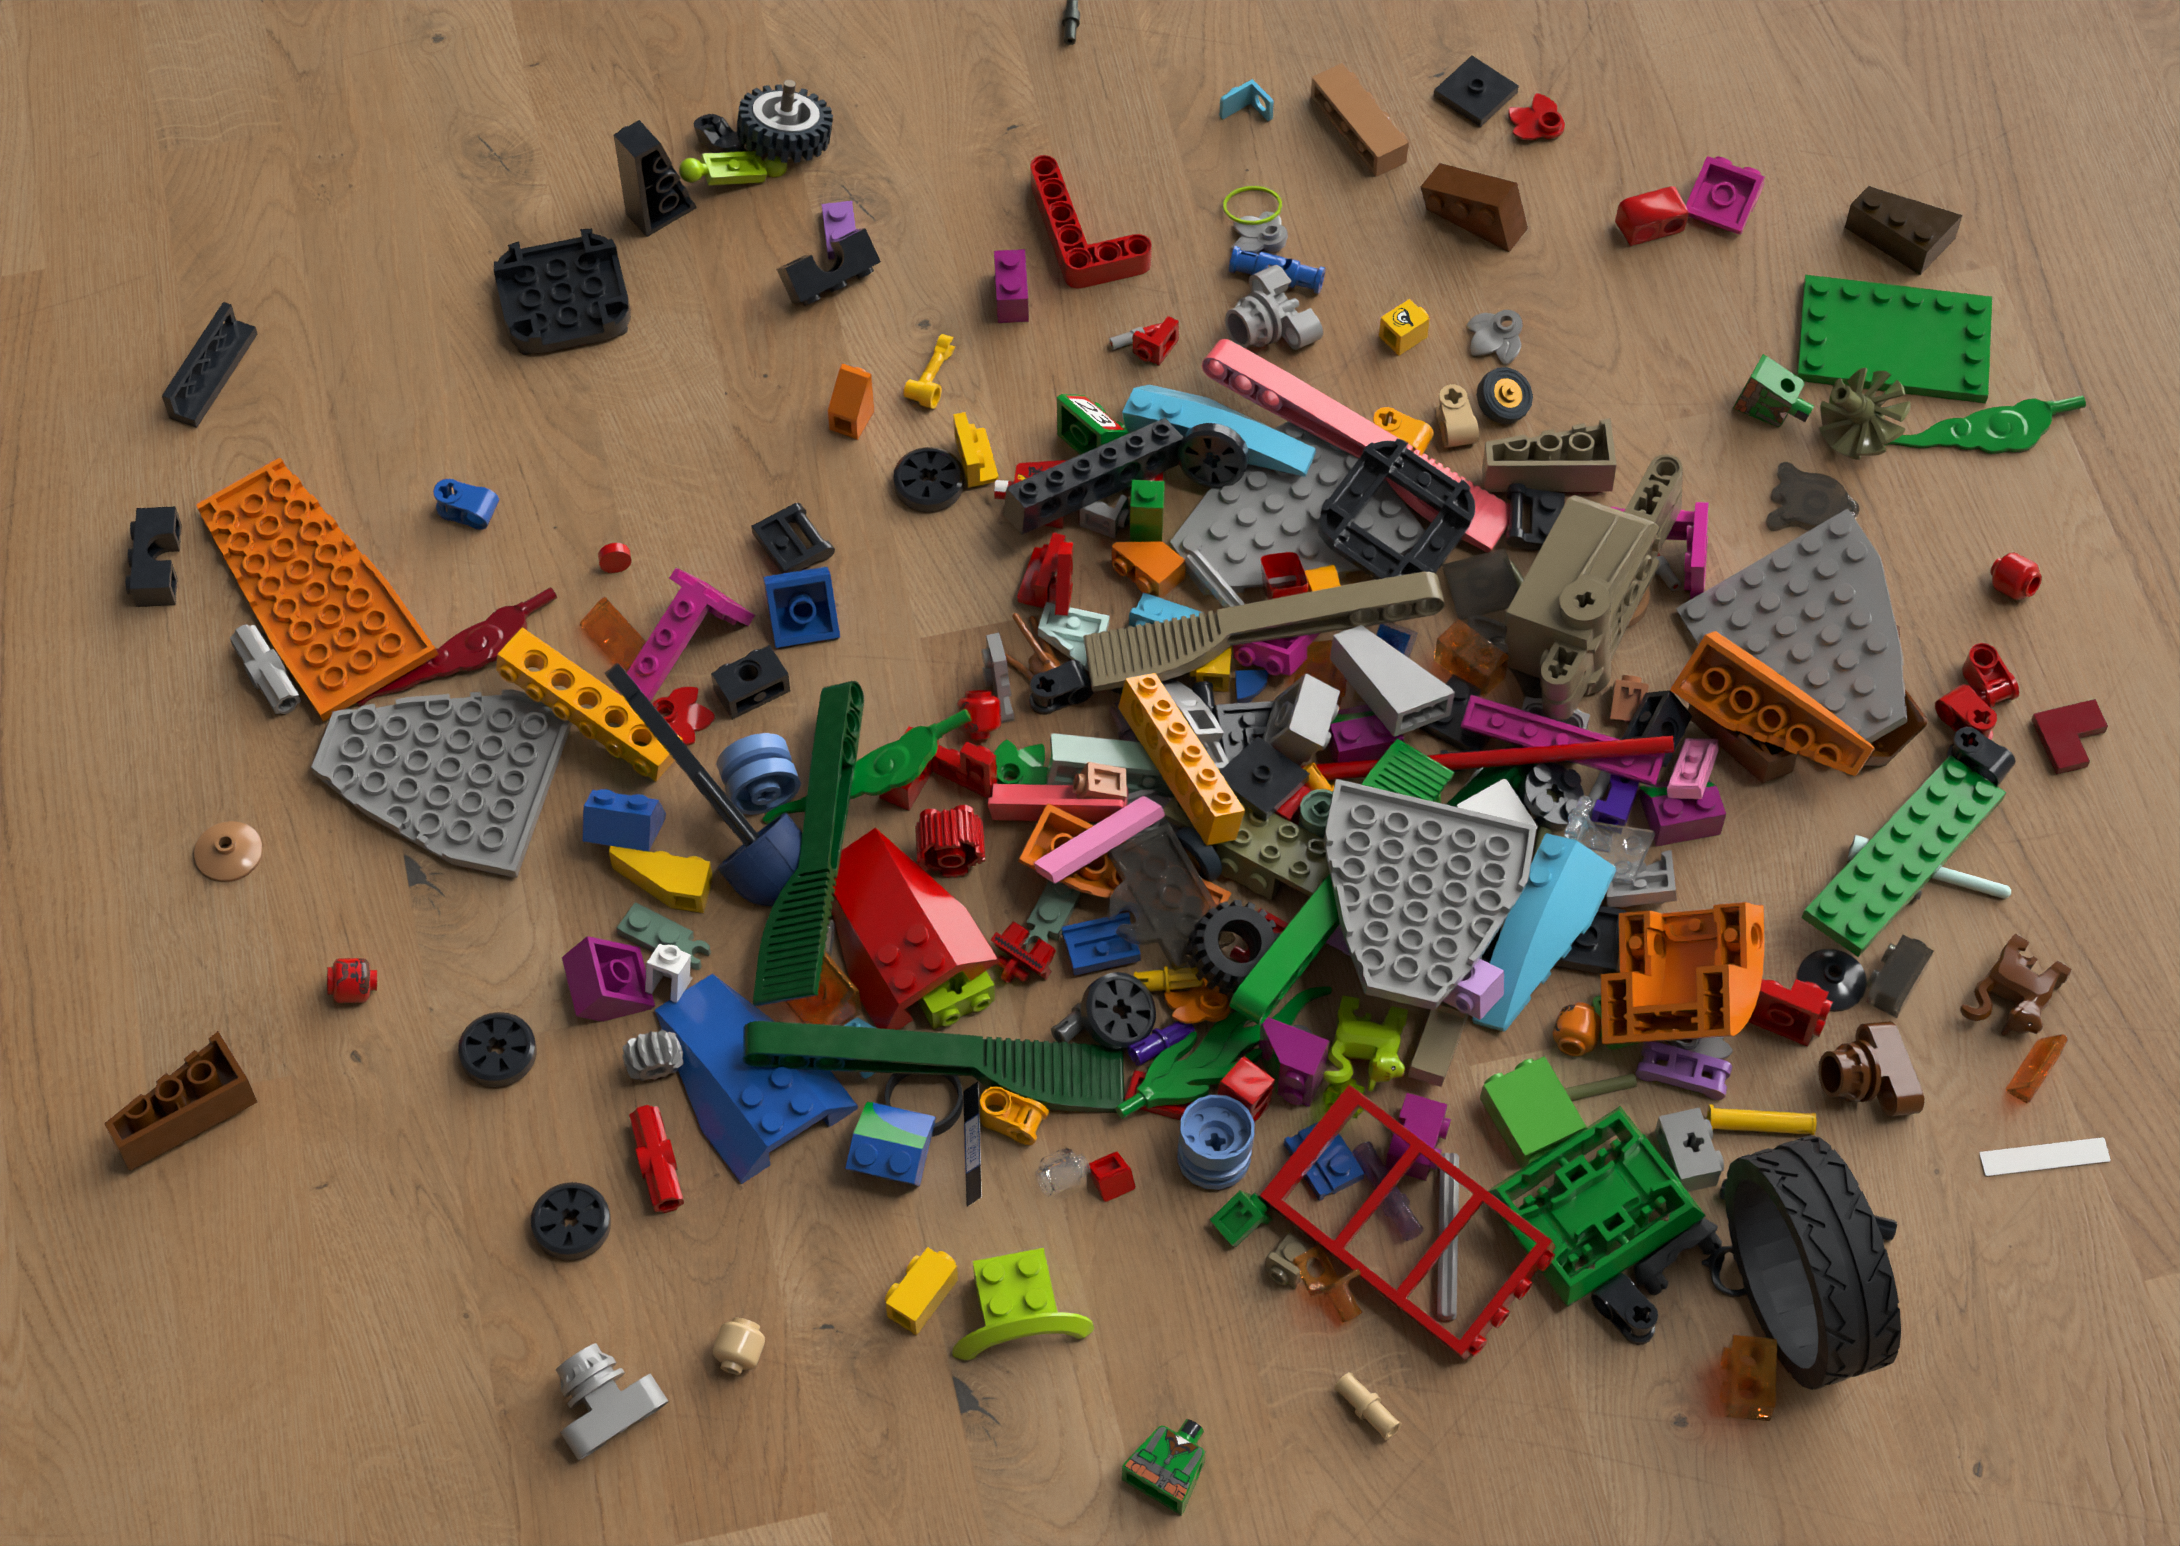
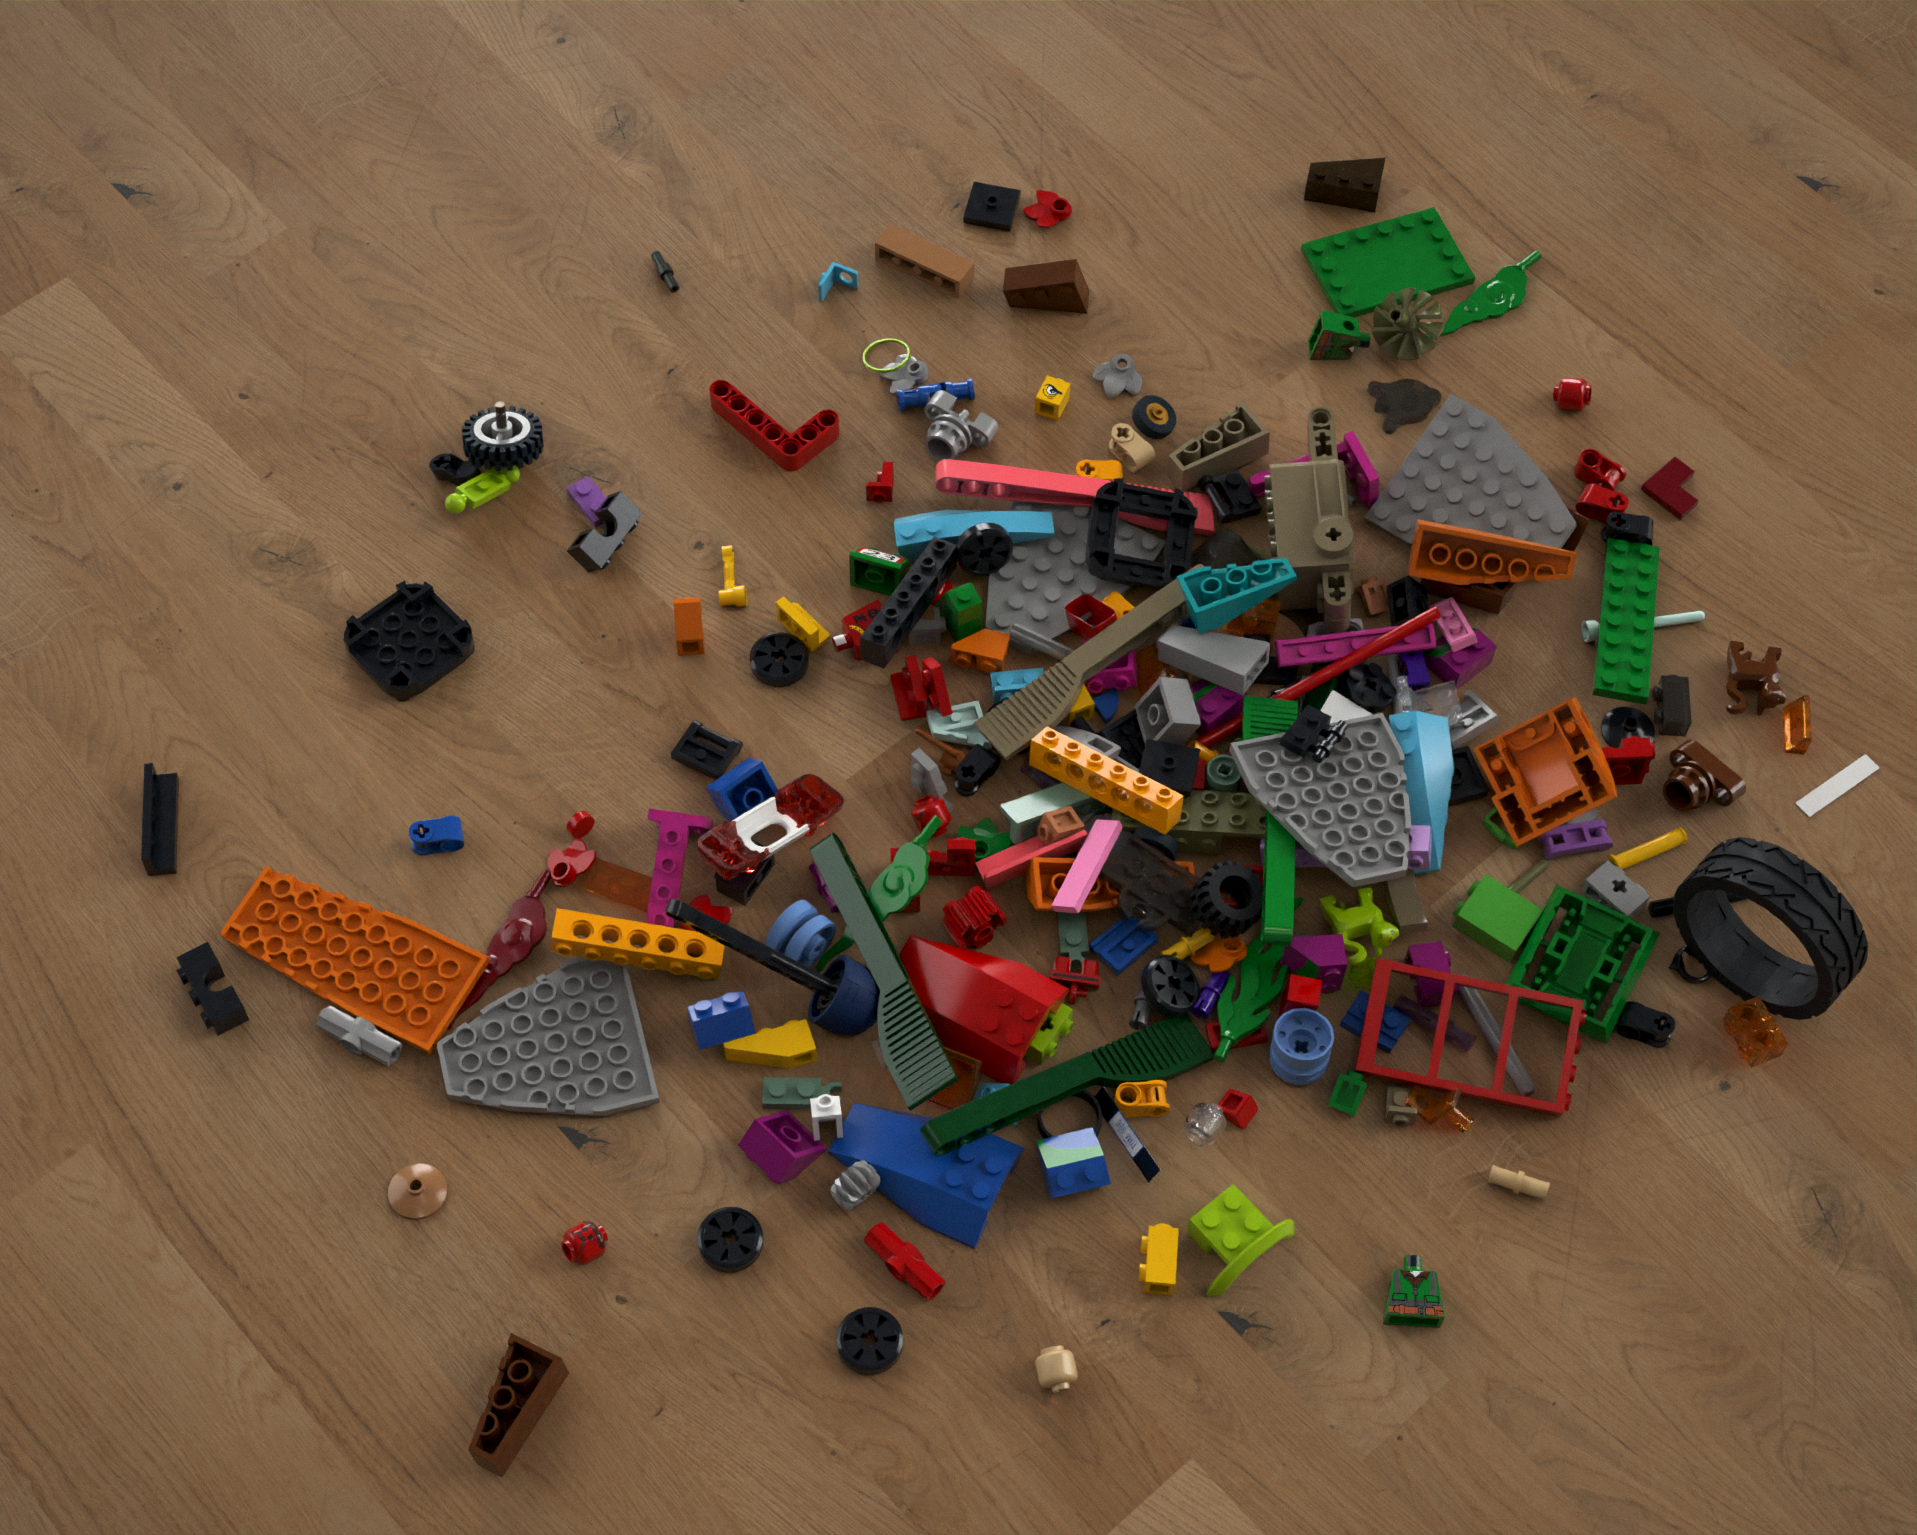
camera: 30 degrees left, 0 degrees up
(579, 592) = (569, 864): none -> red plate
(592, 1381) = (991, 1464): light grey beam -> none
(648, 180) = (432, 524): black wedge -> none
(843, 642) = (796, 807): none -> clear red piece
(1011, 286) = (750, 488): magenta brick -> none
(1126, 338) = (860, 487): light grey piece -> none
(1431, 803) = (1307, 729): none -> black plate
(1432, 614) = (1225, 593): none -> teal wedge
(1577, 1029) = (1488, 845): orange head -> none
(1650, 1269) = (1644, 988): black piece -> none
(1651, 215) = (1173, 245): red piece -> none
(1725, 194) = (1213, 209): dark pink plate -> none

